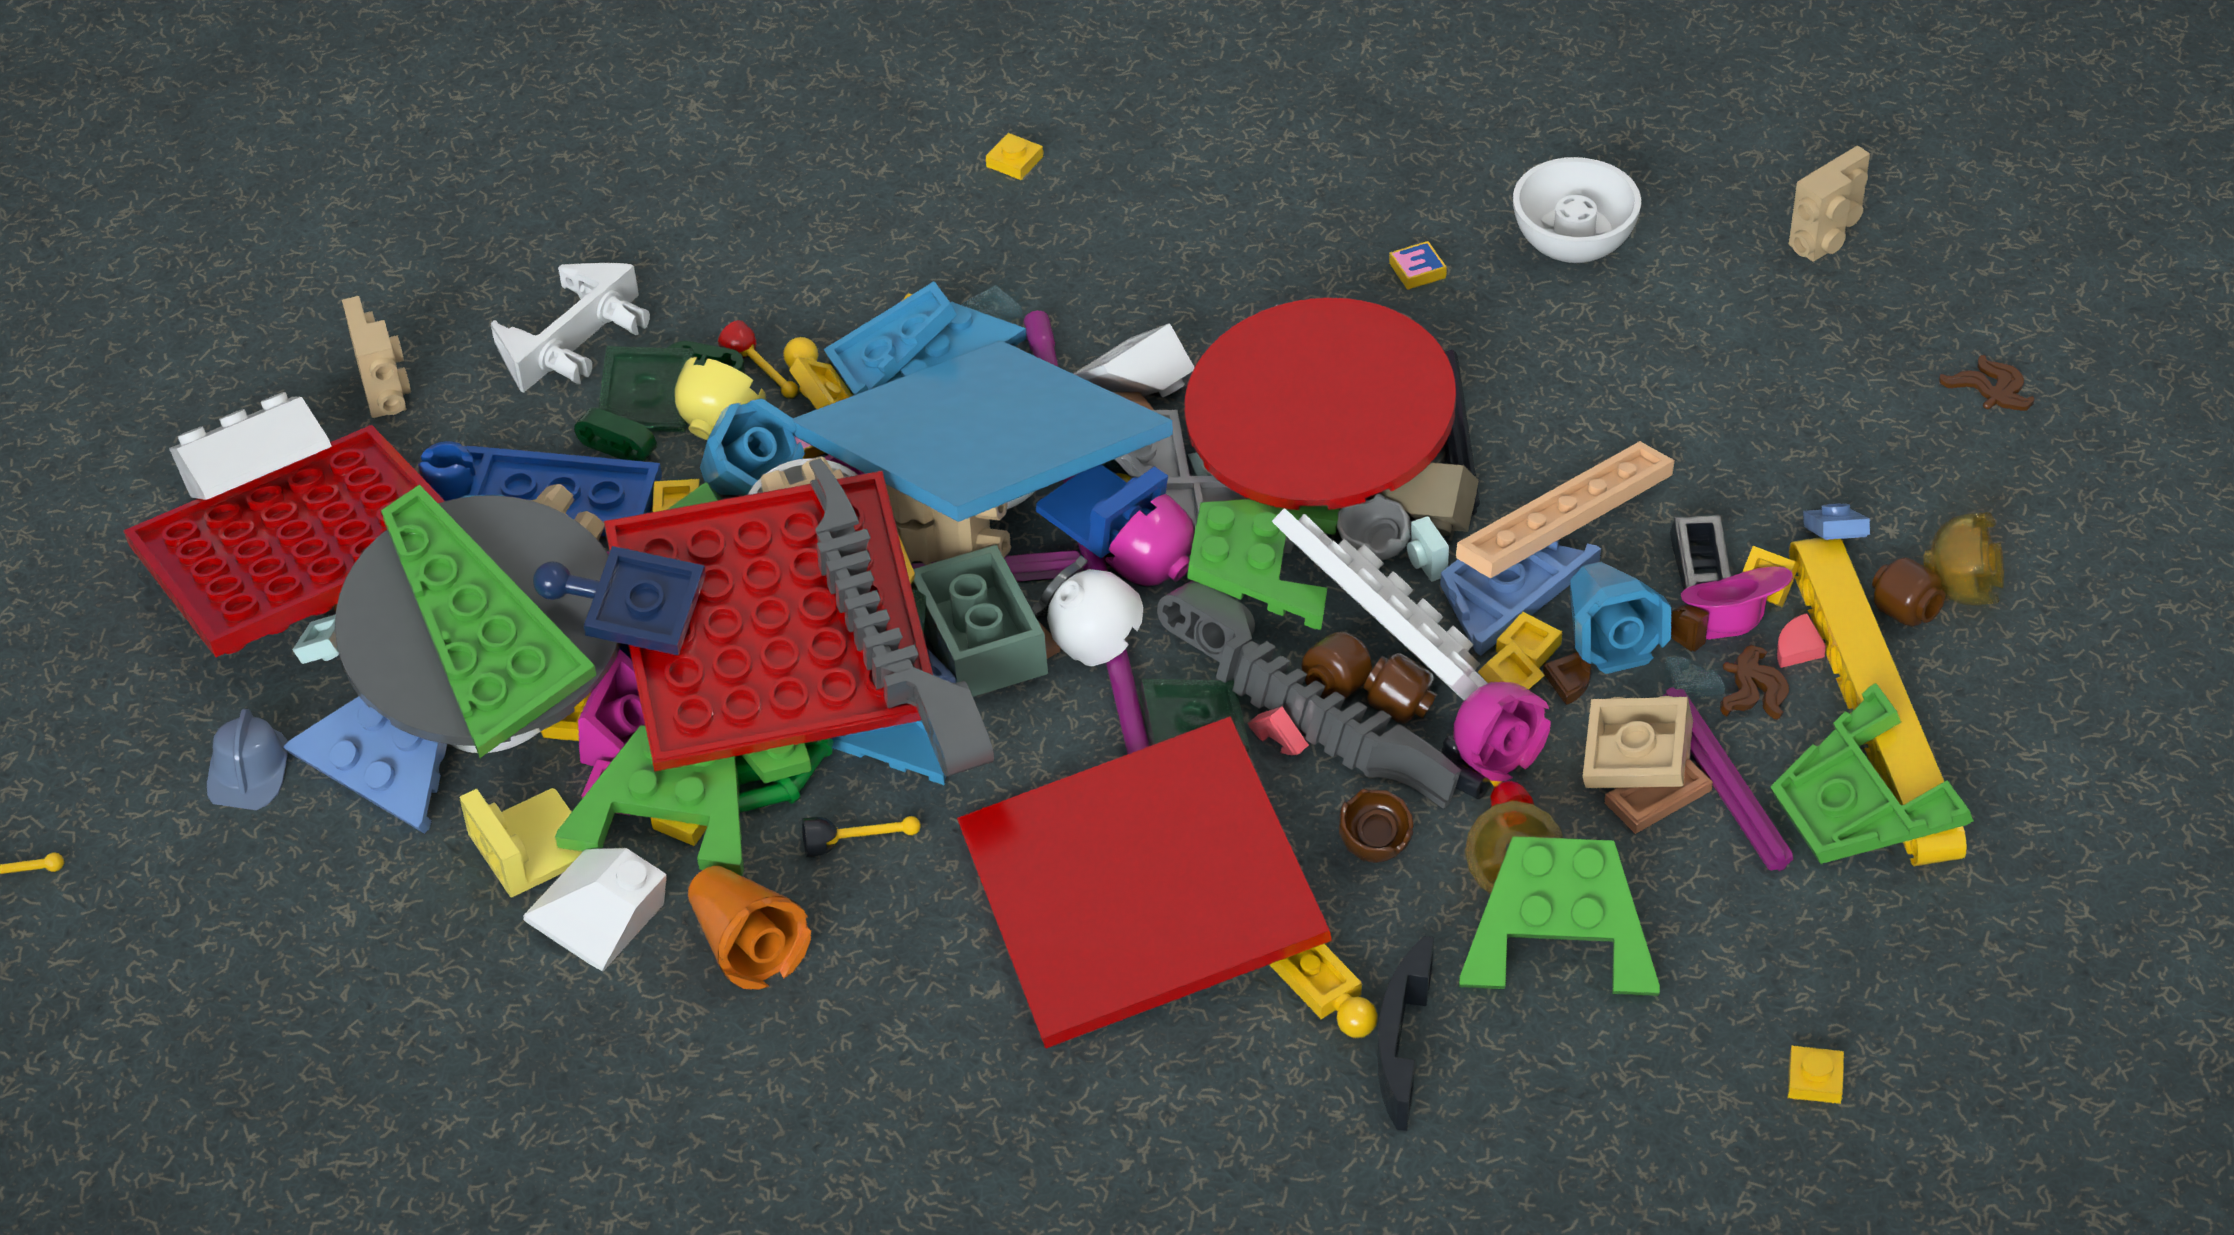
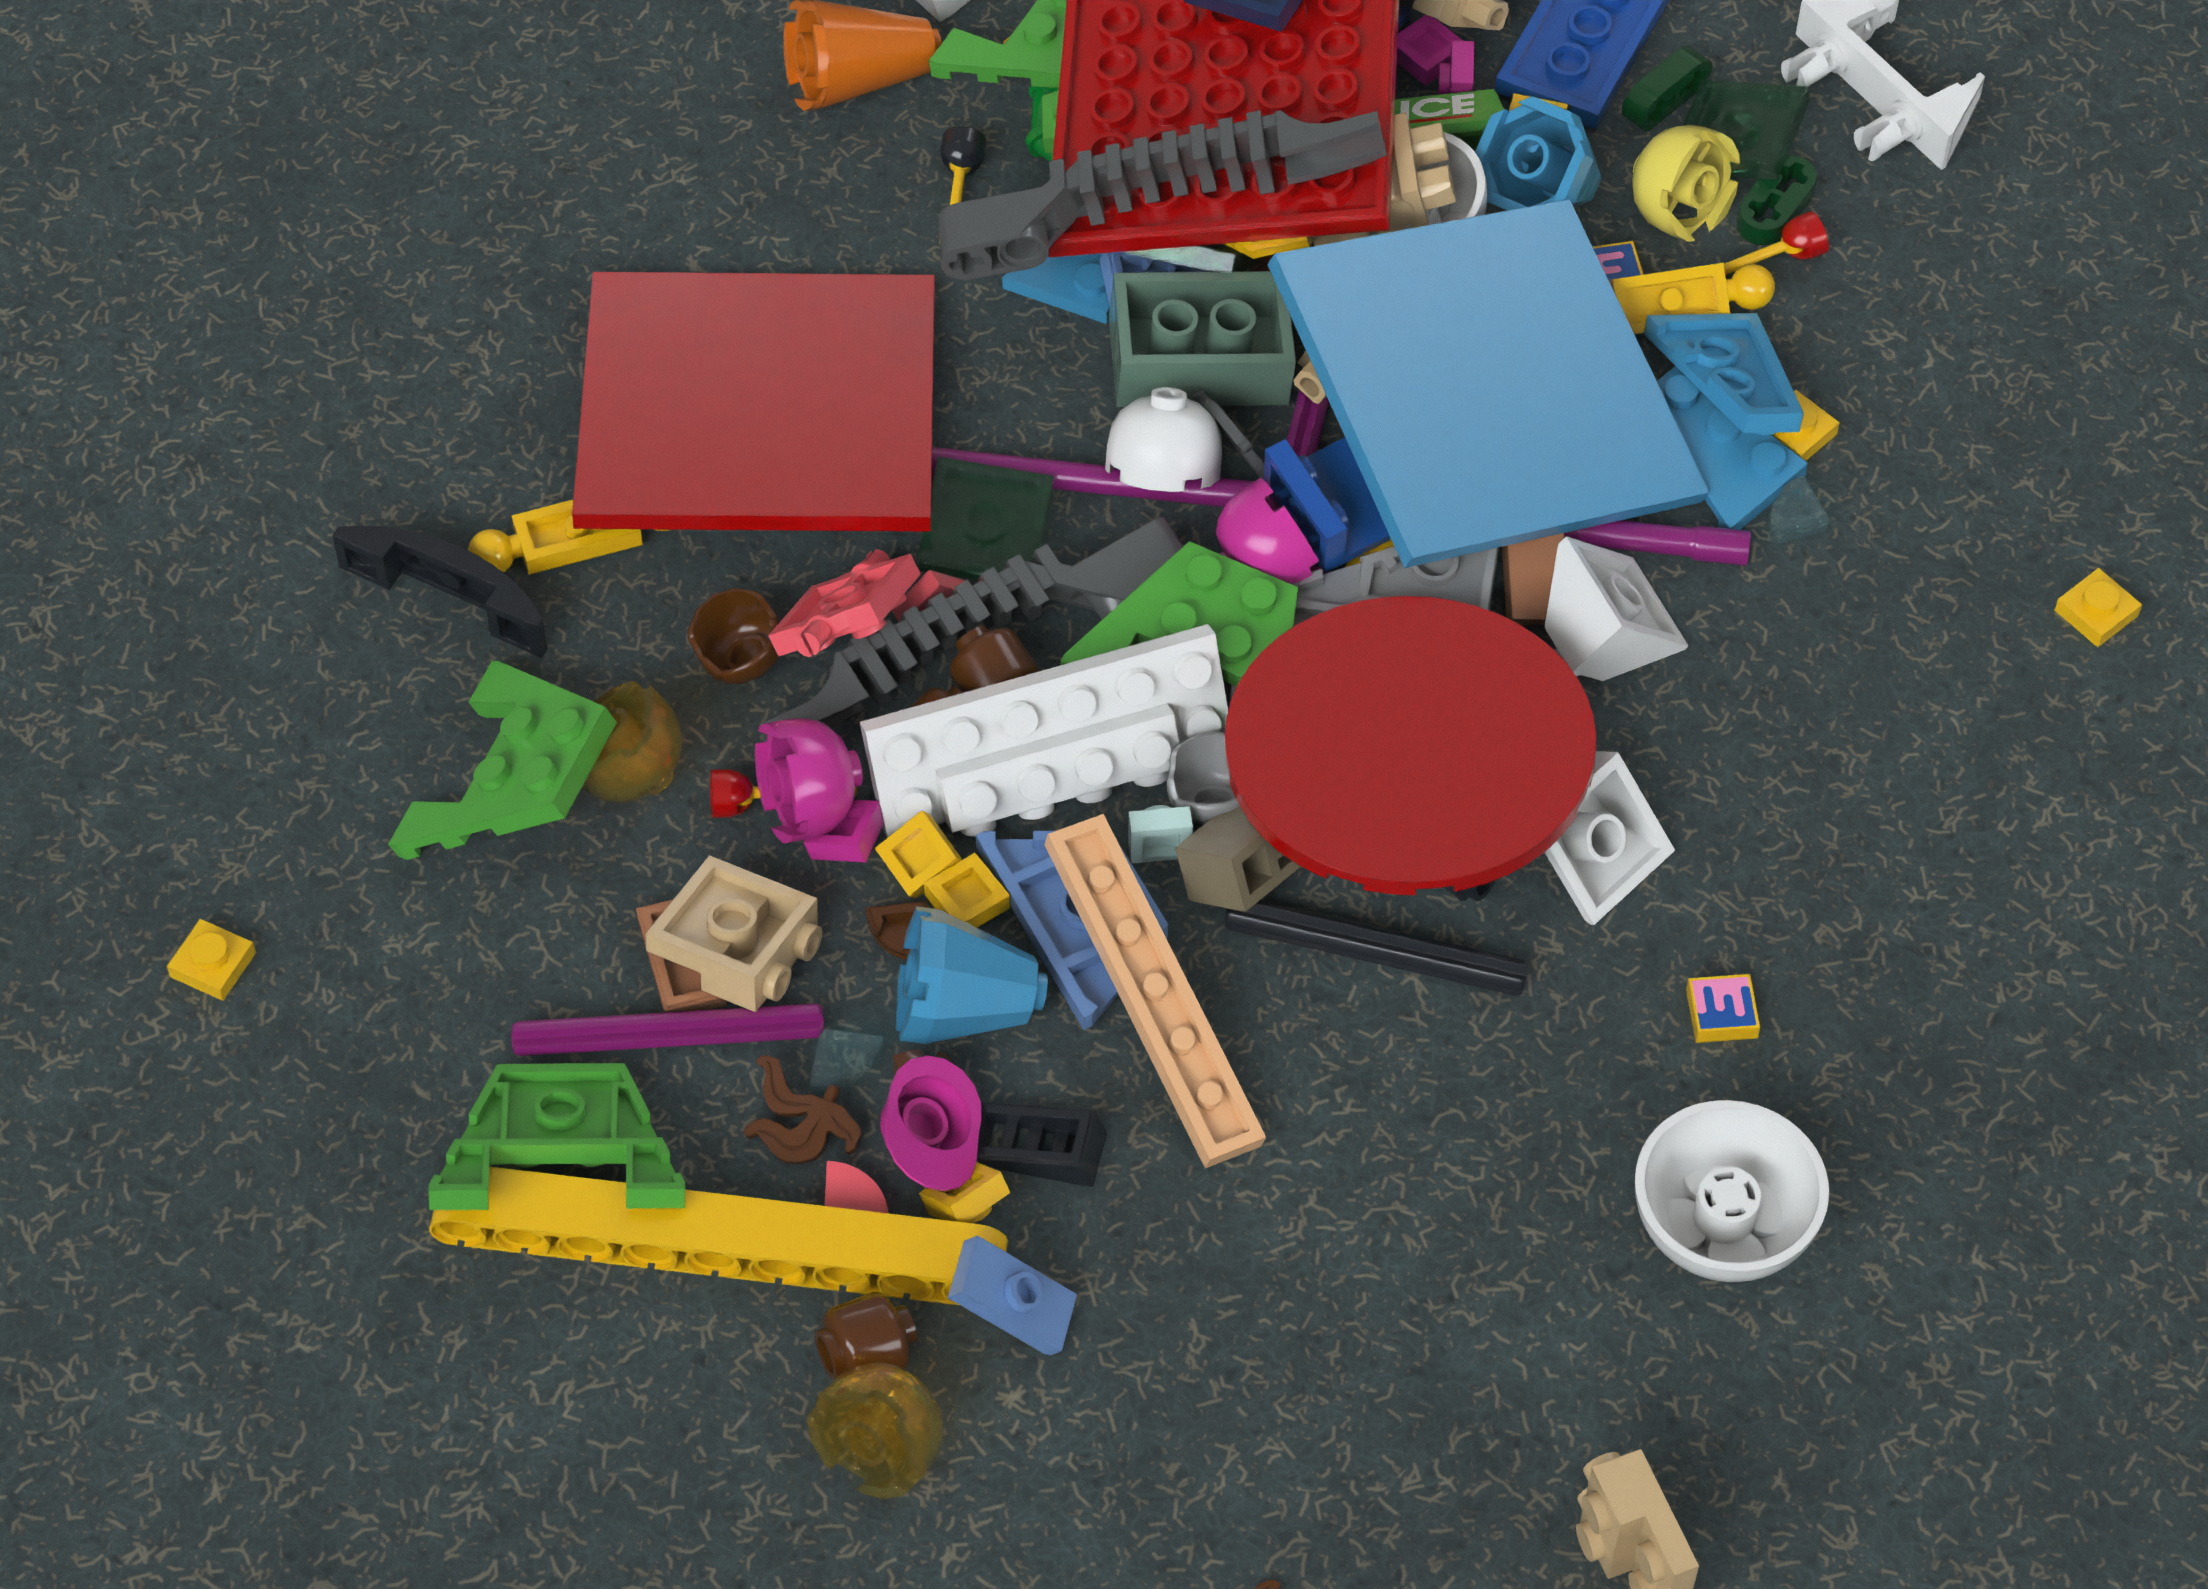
camera: 105 degrees right, 10 degrees up
(1330, 750) = (846, 605): none -> coral plate

